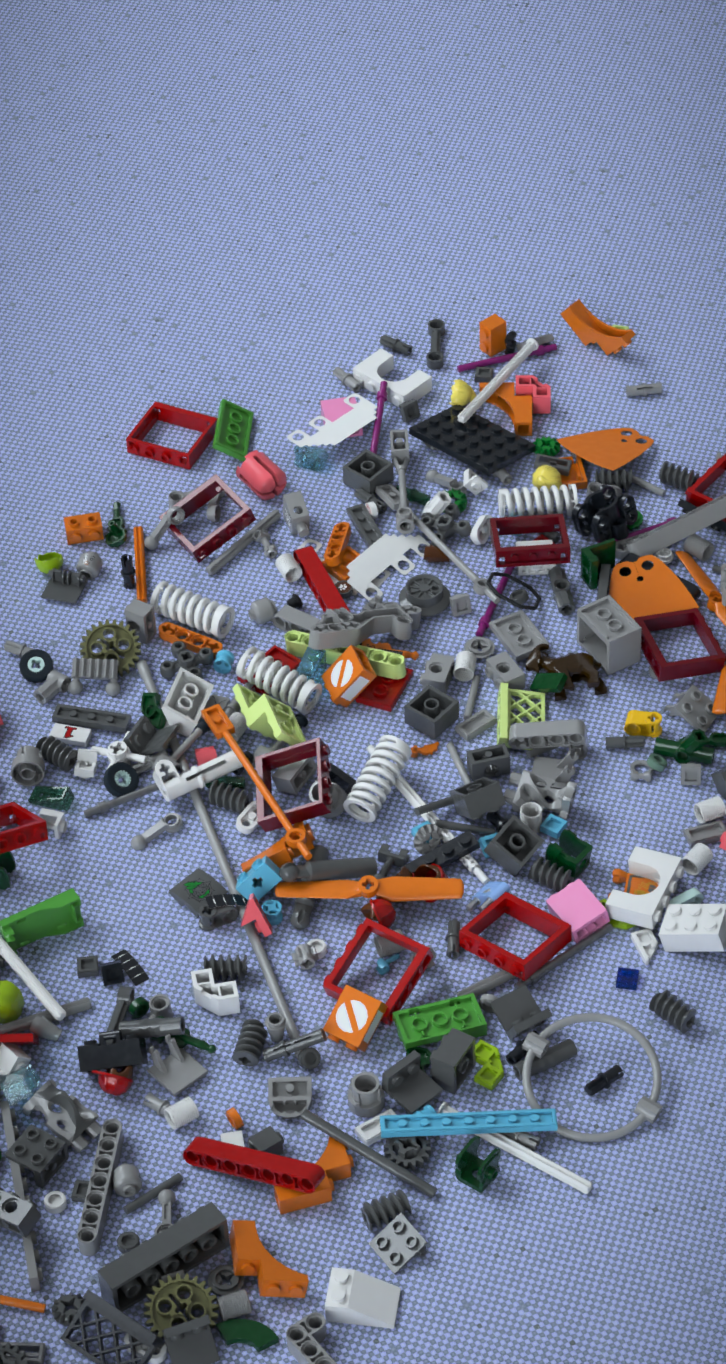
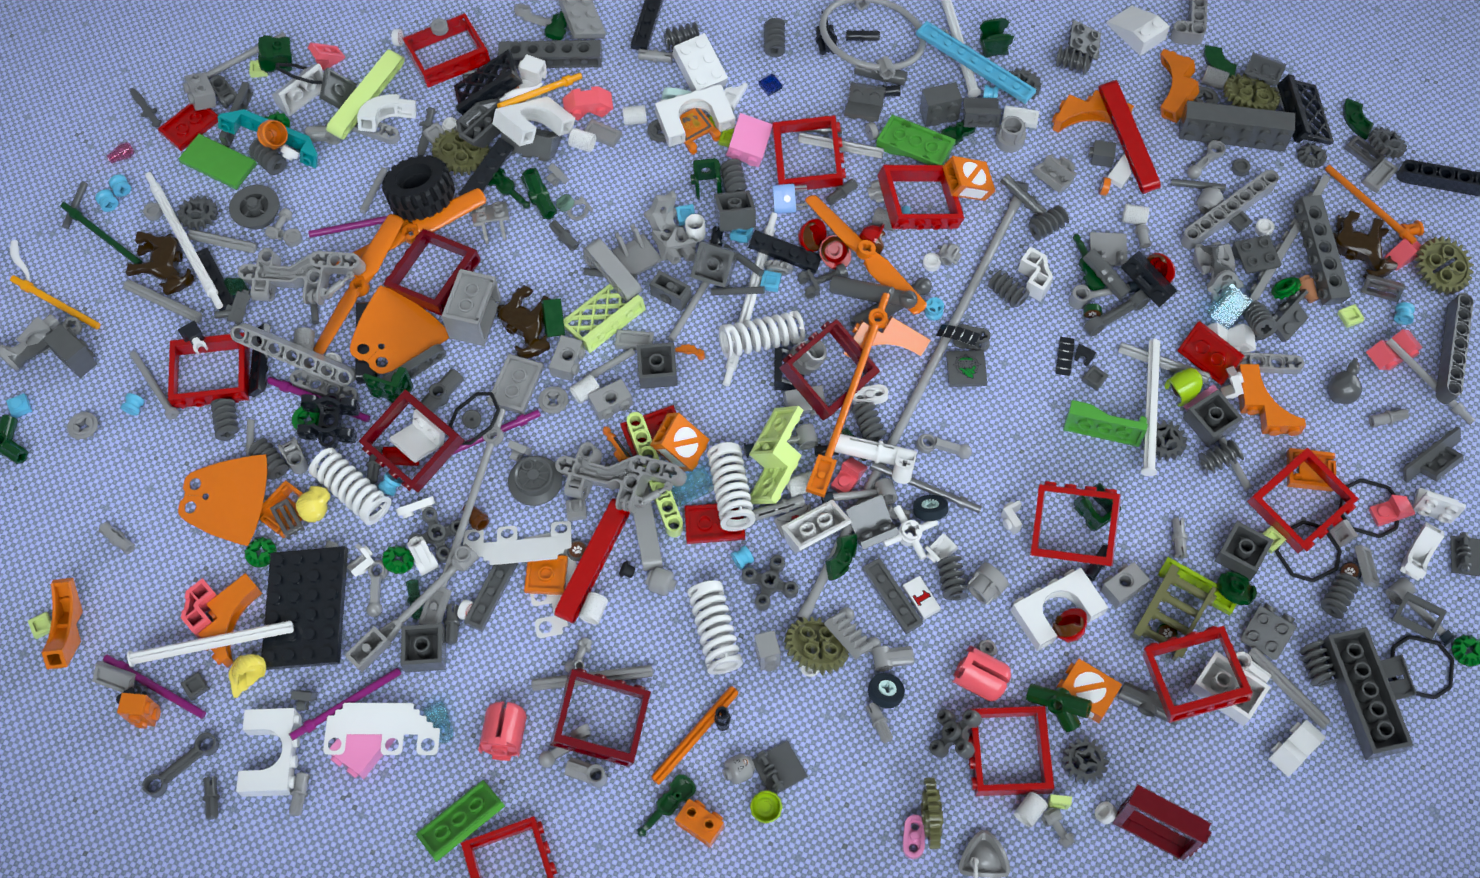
camera: 135 degrees left, 20 degrees up
(44, 1028) = (1171, 348): light grey cone -> none
(62, 802) = (977, 538): slope -> none
(152, 541) = (661, 749): light grey piece -> none
(171, 632) = (743, 608): orange beam -> none
(254, 912) = (957, 303): coral slope -> none
(261, 868) = (926, 324): medium azure brick -> none
(276, 1025) = (1021, 217): light grey cone -> none
(296, 521) = (528, 656): light grey torso -> none
(337, 544) = (533, 596): orange beam -> none
(369, 1153) = (1052, 93): dark grey piece -> none
(492, 1069) = (908, 104): lime tile -> none
(629, 1051) = (823, 48): none -> black piece
(641, 723) = (535, 236): yellow piece -> none

